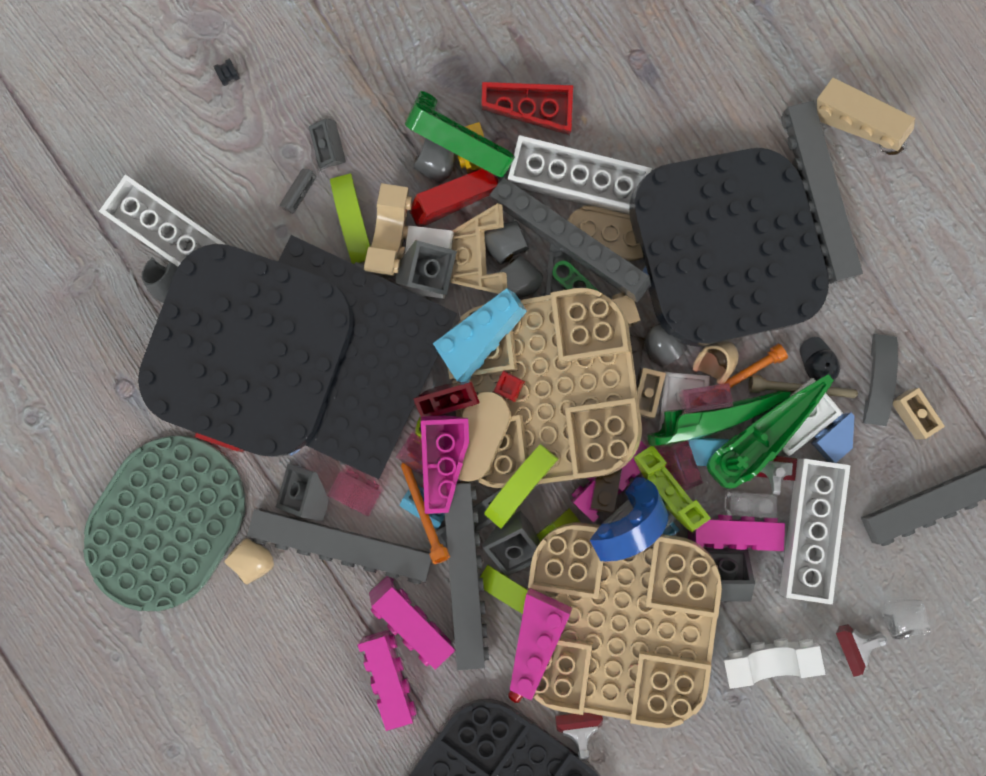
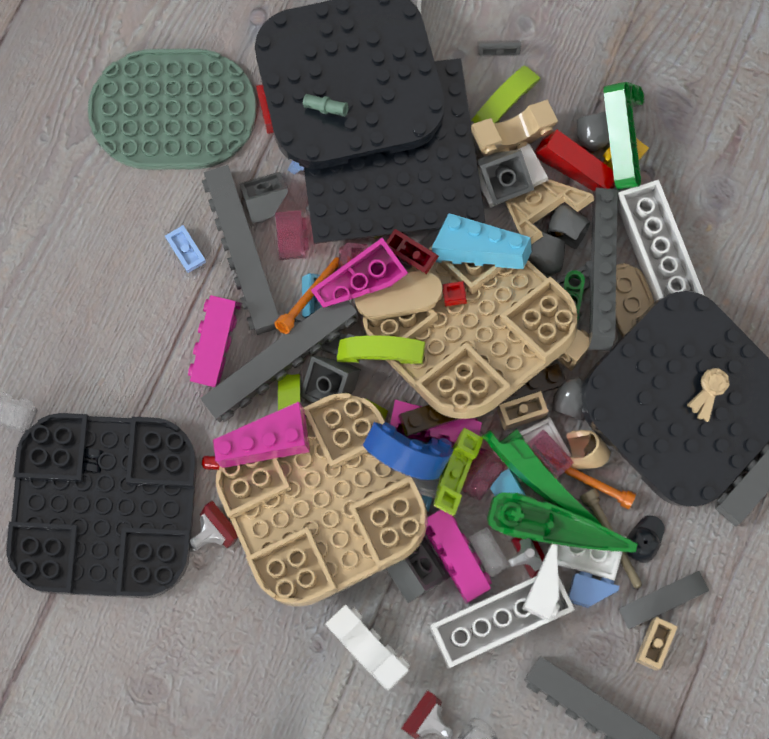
camera: 50 degrees right, 10 degrees down
(250, 561) = (184, 187): tan piece -> none
(261, 392) = (325, 105): none -> sand green pin
(307, 595) = (185, 249): none -> light blue plate
(327, 143) = (551, 46): dark grey slope -> none
(387, 679) = (158, 350): dark pink wedge -> none
(534, 104) = (692, 178): red wedge -> none
(737, 214) = (713, 383): none -> tan piece
(822, 483) = (545, 589): none -> white slope

